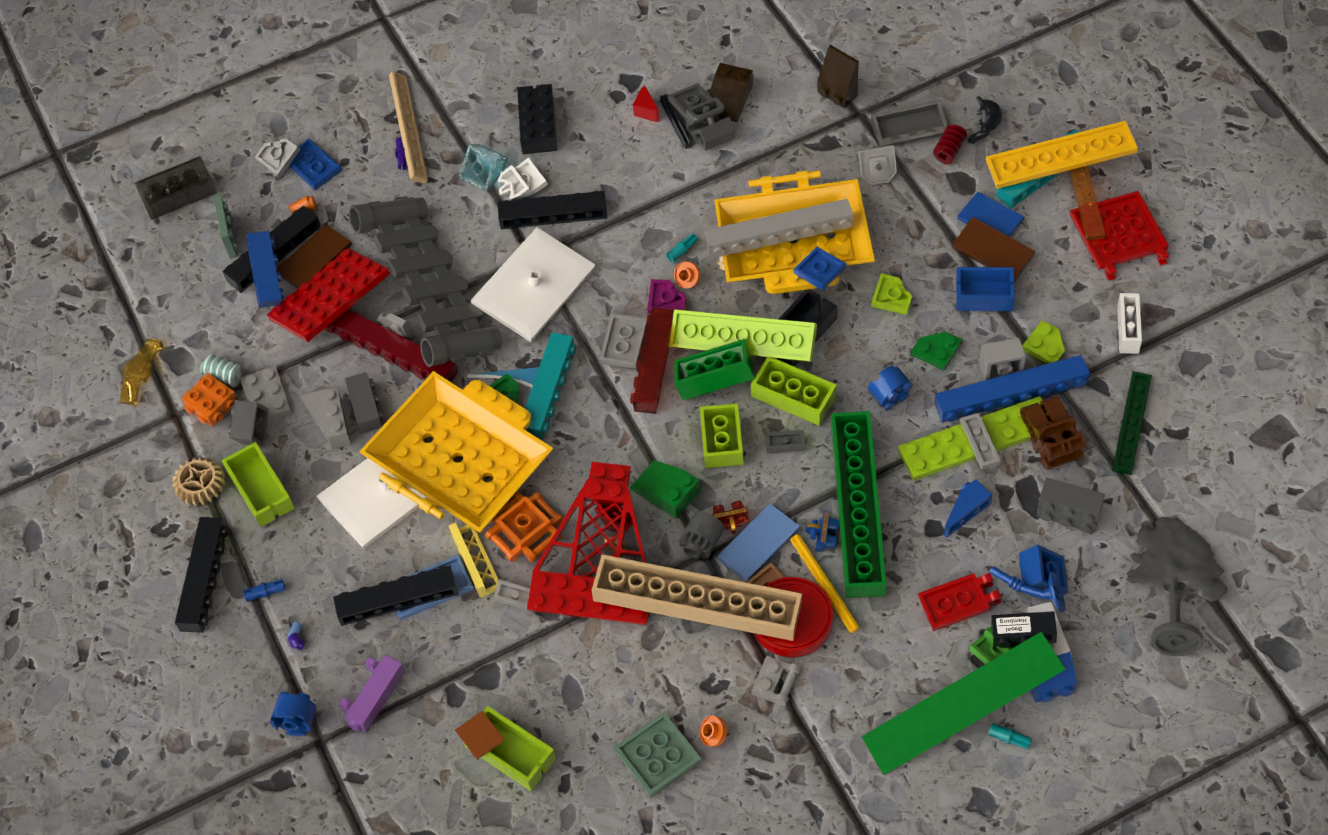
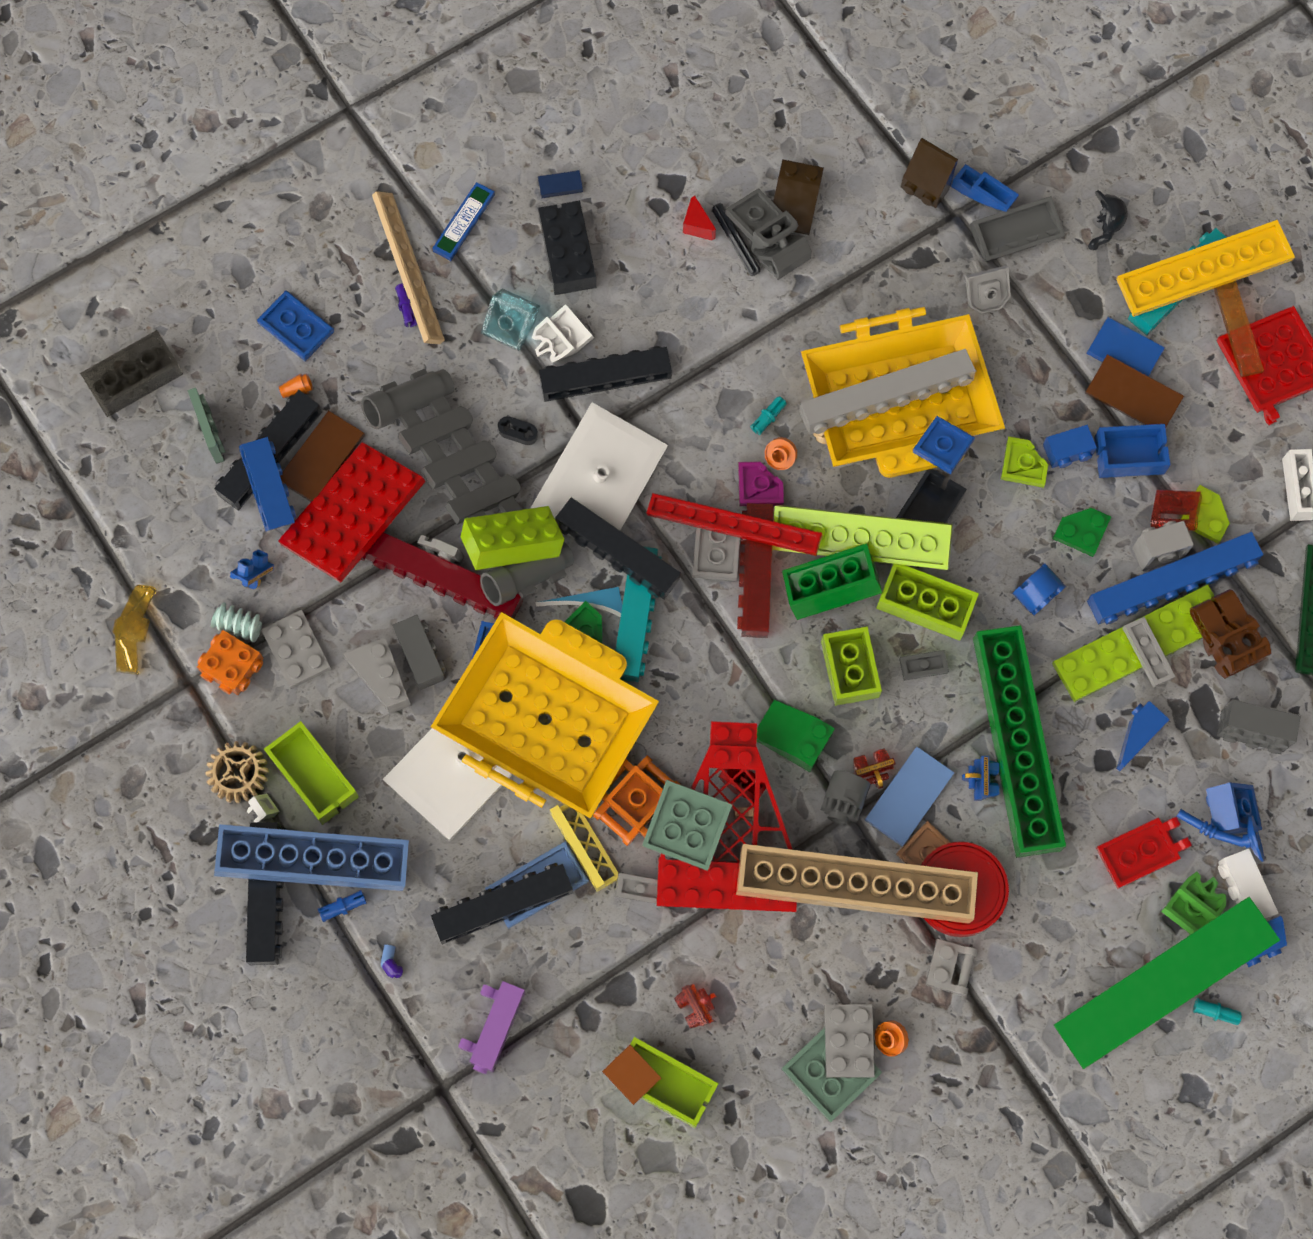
camera: 15 degrees left, 15 degrees up
(213, 508) = (263, 807): none -> white tile
(240, 334) = (252, 570): none -> blue hips
(242, 544) = (311, 857): none -> medium blue brick
(248, 422) = (286, 696): dark grey brick -> none
(277, 155) = (251, 319): light grey plate -> none
(293, 713) = (408, 1064): blue brick -> none
(450, 313) = (512, 537): none -> lime brick
(458, 98) = (463, 221): none -> tile
(475, 247) = (516, 435): none -> black beam
(537, 331) = (617, 549): none -> black brick
(540, 76) = (560, 184): none -> dark blue tile
(551, 688) = (691, 997): none -> clear red hips
(559, 540) = (687, 825): none -> sand green plate
(639, 322) = (734, 524): none -> red tile
(675, 729) = (849, 1041): none -> light grey plate
(824, 583) = (990, 841): yellow axle -> none
(884, 93) = (984, 189): none -> blue slope
(932, 284) = (1069, 447): none -> blue brick
(949, 143) = (1068, 254): dark red piece -> none
(1019, 627) = (1224, 888): black brick -> none
(1023, 330) = (1176, 503): none -> clear red plate

